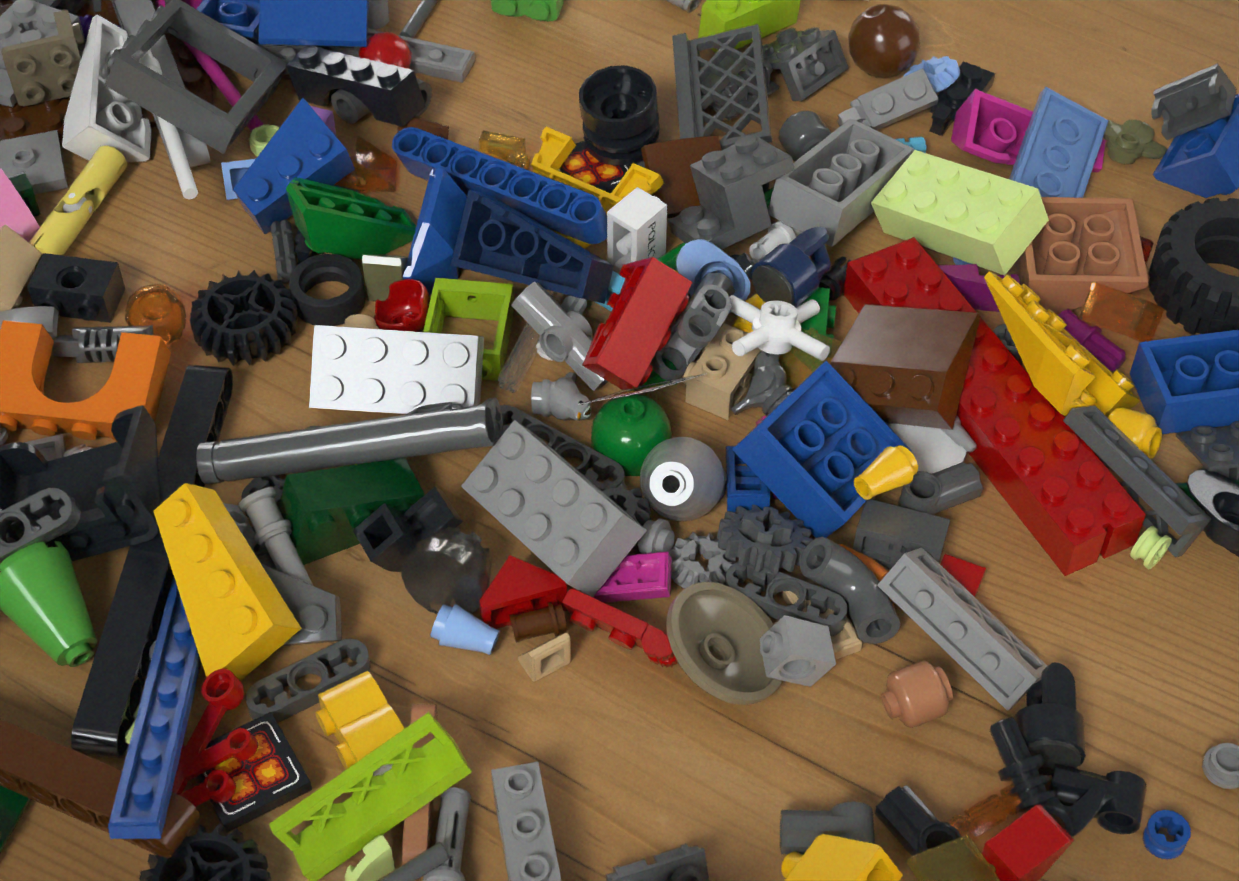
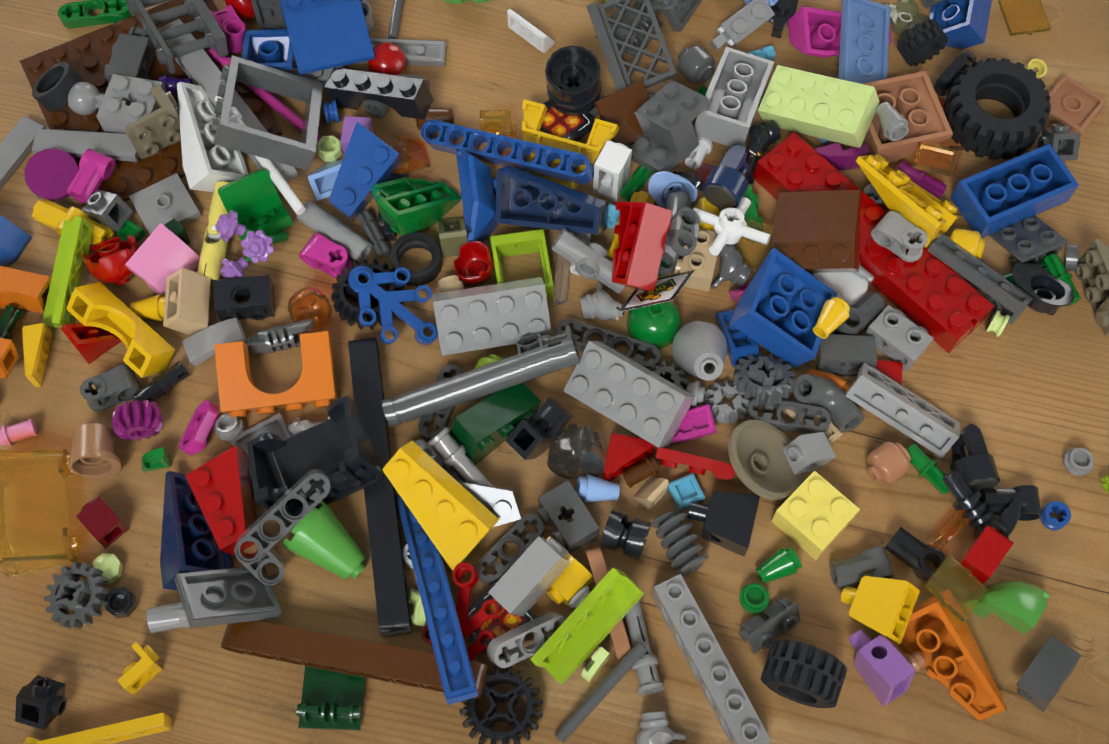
camera: 15 degrees left, 15 degrees up
(112, 218) = (256, 244): none -> medium lavender plant
(135, 180) = (256, 203): none -> green bracket
(204, 258) = (325, 255): none -> dark pink piece
(230, 234) = (335, 231): none -> light grey axle
(245, 789) = (515, 638): none -> light grey beam
(263, 326) = (389, 302): none -> blue plant
(286, 99) = (331, 111): none -> blue bush
(308, 701) = (530, 576): none -> light grey brick
(407, 656) = (565, 501): none -> dark grey brick
(487, 699) = (625, 534): none -> black wheel
(558, 727) = (679, 542): none -> dark grey piece
(582, 53) = (529, 32): none -> white slope
(596, 668) = (685, 491): none -> medium azure tile
(643, 714) = (727, 519): none -> black torso
(646, 835) = (754, 598): none -> green plate
(700, 798) = (779, 565): none -> green cone
(778, 739) = (815, 515): none -> light yellow brick
(869, 239) = (762, 136): none -> black animal
(976, 715) = (927, 468): none -> green axle
(989, 532) = (899, 337): none -> light grey brick
(1022, 389) = (898, 235): none -> light grey piece
(1058, 248) = (892, 123): none -> light grey cone
(1135, 157) = (922, 42): none -> black tyre
(1171, 203) = (948, 76): none -> black tile

